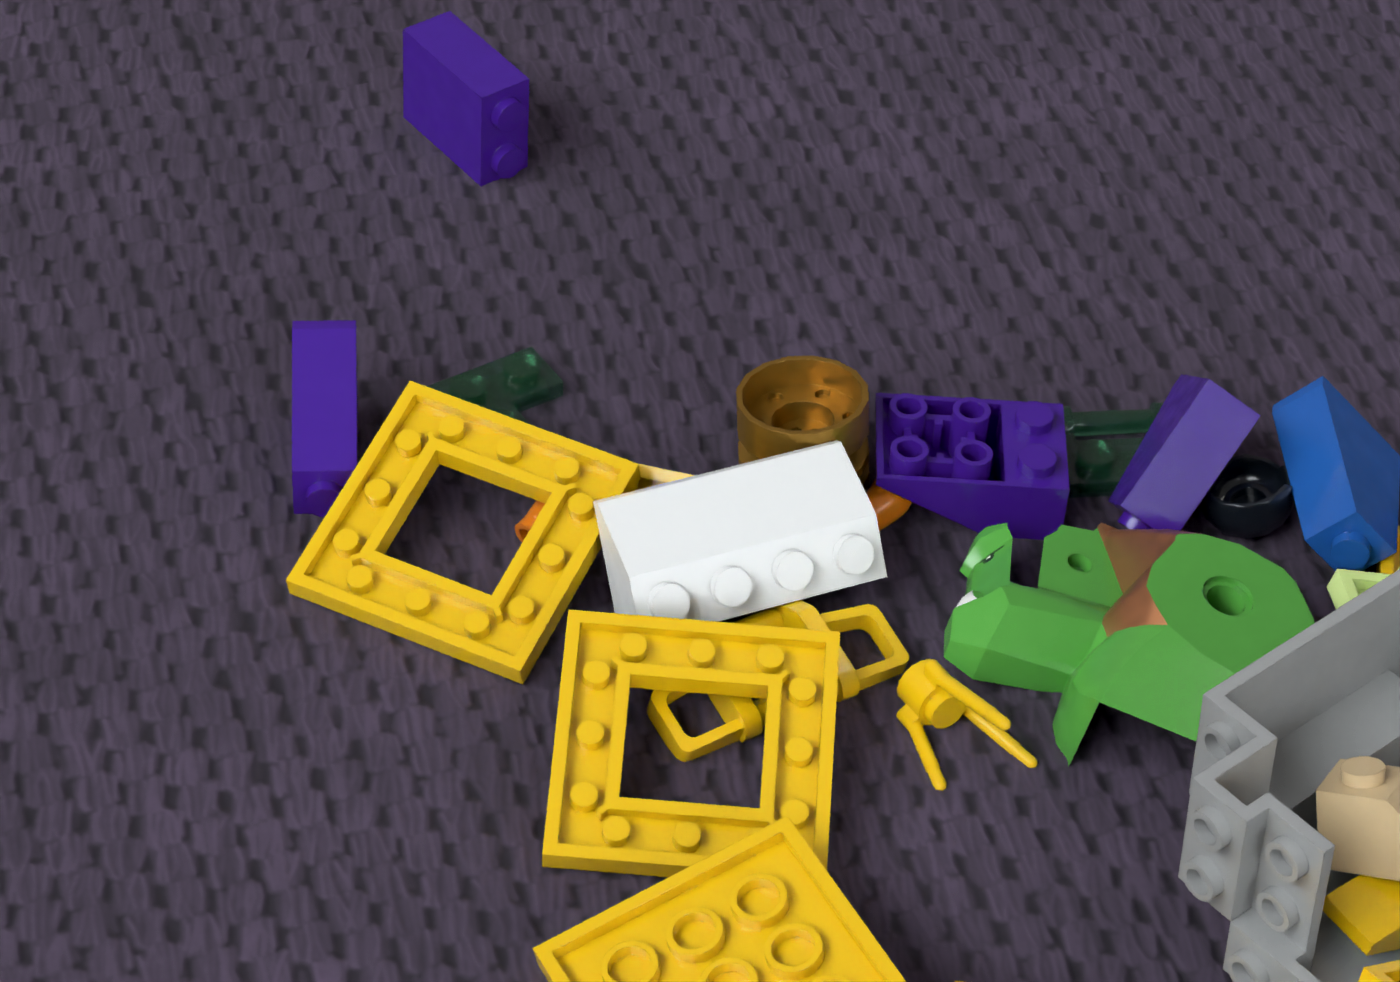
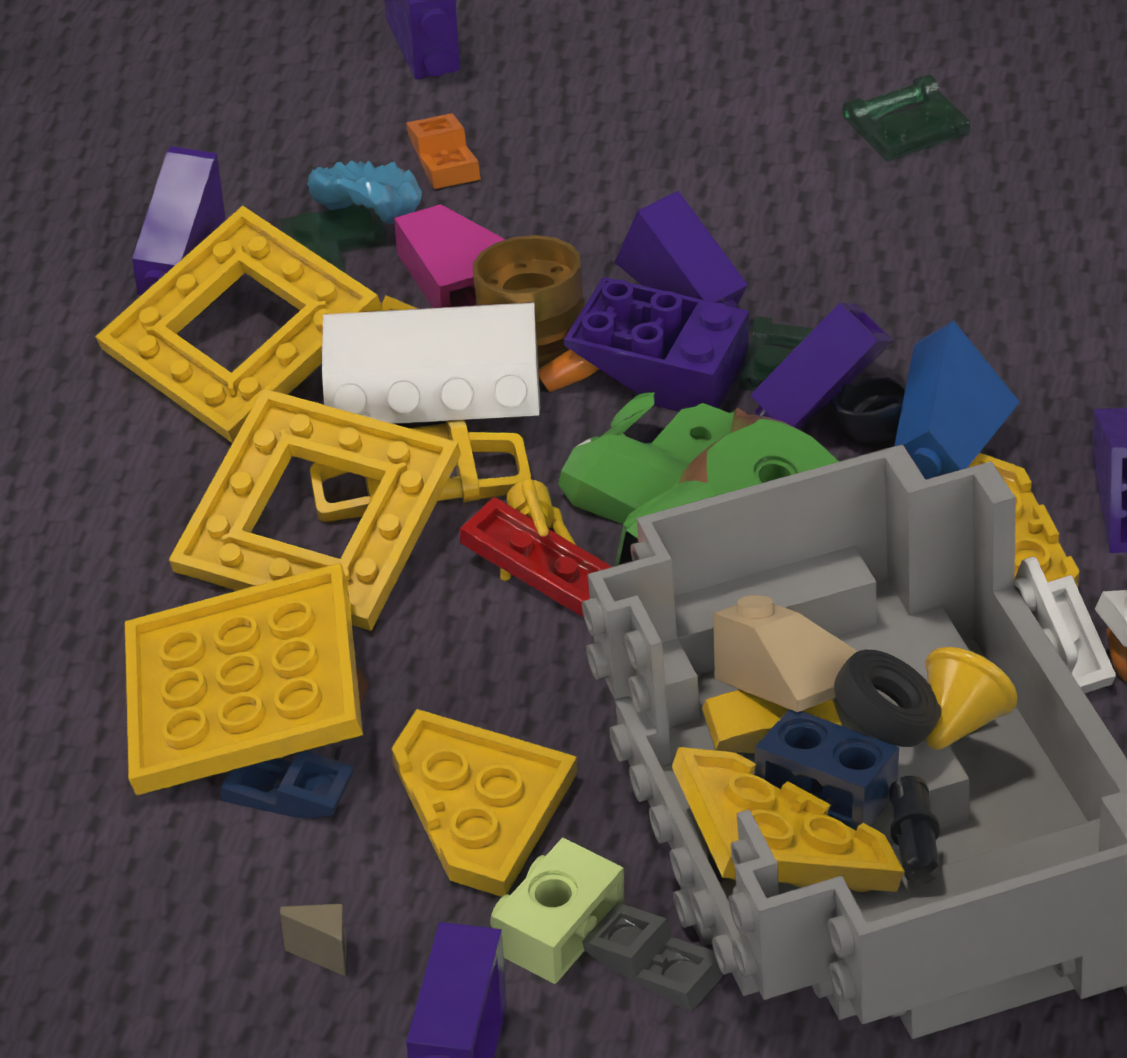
camera: 25 degrees right, 0 degrees up
(502, 325) = (383, 188): none -> dark azure piece
(565, 266) = (443, 151): none -> orange slope
(665, 402) = (440, 253): none -> dark pink slope
(937, 350) = (677, 254): none -> dark purple slope
(987, 758) = (544, 563): none -> red plate
(1074, 158) = (909, 129): none -> clear green plate

